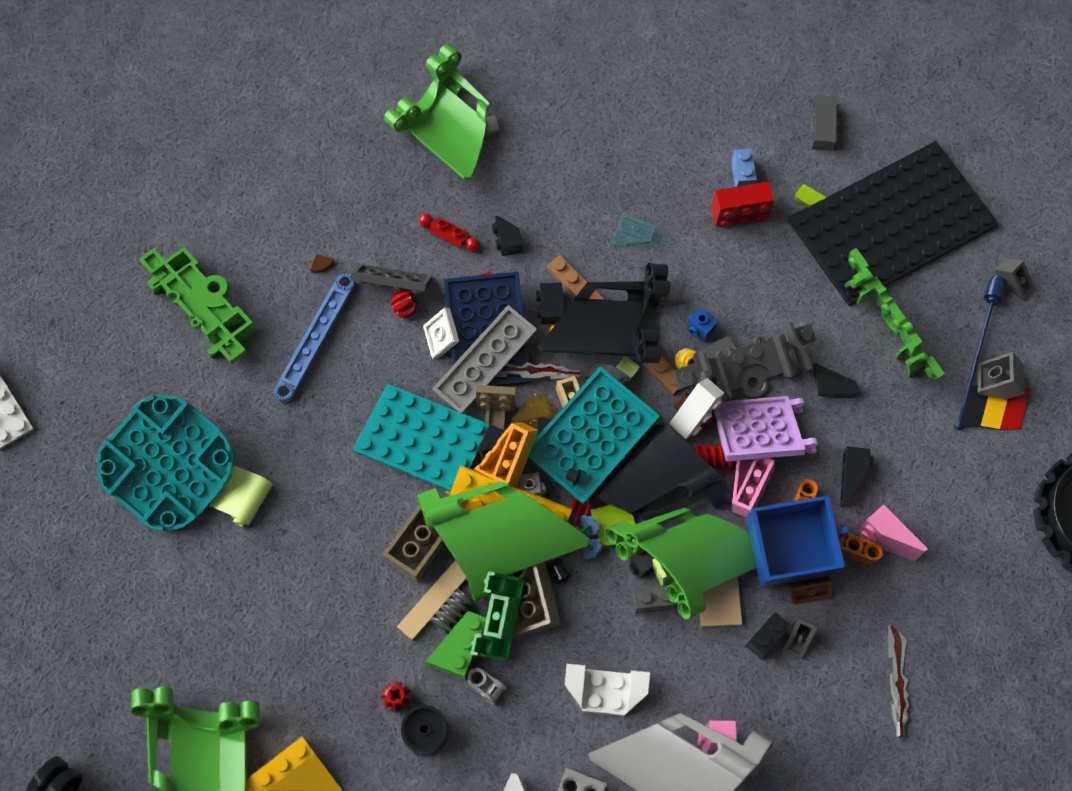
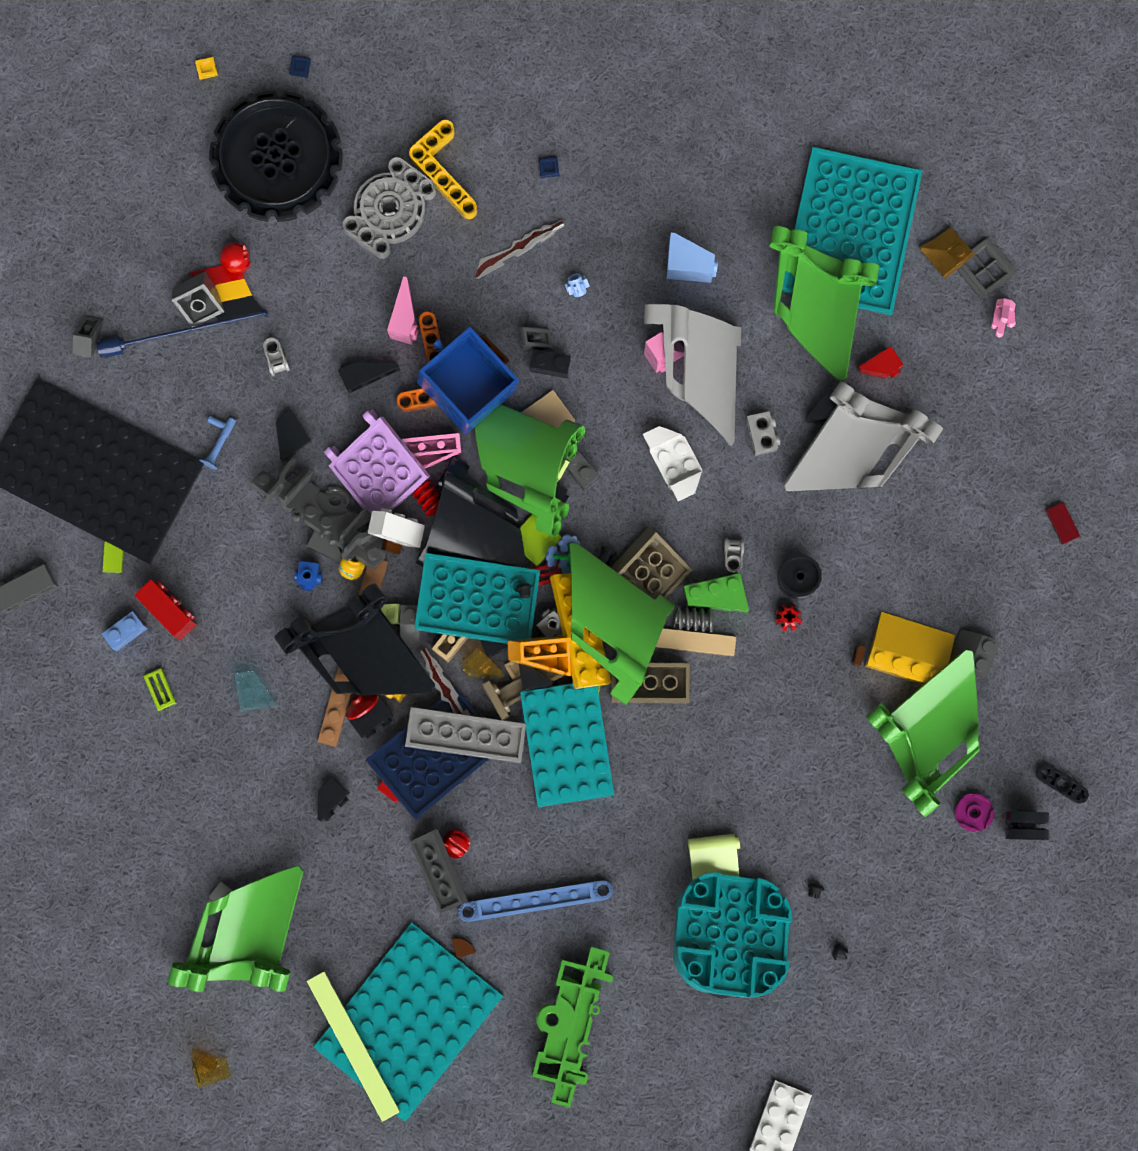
camera: 120 degrees left, 15 degrees up
(86, 548) = (838, 952): none -> black piece
(95, 746) = (984, 812): none -> magenta plate
(151, 562) = (815, 889): none -> black piece
(297, 195) = (414, 1017): none -> teal plate
(307, 142) = (353, 1046): none -> yellowish green tile
(316, 736) = (858, 656): none -> reddish brown tile
(369, 44) = (208, 1068): none -> clear yellow slope
(441, 333) = (463, 791): white tile -> none
(449, 232) = (358, 854): red plate -> none
(501, 616) = (684, 571): green bracket -> none
(564, 296) = (360, 705): none -> red dish
(680, 174) = (166, 704): none -> lime tile
(830, 708) = (577, 285): none -> light blue gear
(869, 338) = (226, 429): none -> medium blue piece
(908, 409) = (276, 360): none -> light grey piece
(913, 352) = (191, 451): bright green piece -> none
(964, 759) = (548, 167): none -> dark blue tile
(1013, 651) = (439, 172): none -> yellow beam
(1017, 574) = (386, 189): none -> light grey piece
(1024, 427) = (235, 258): none -> red helmet

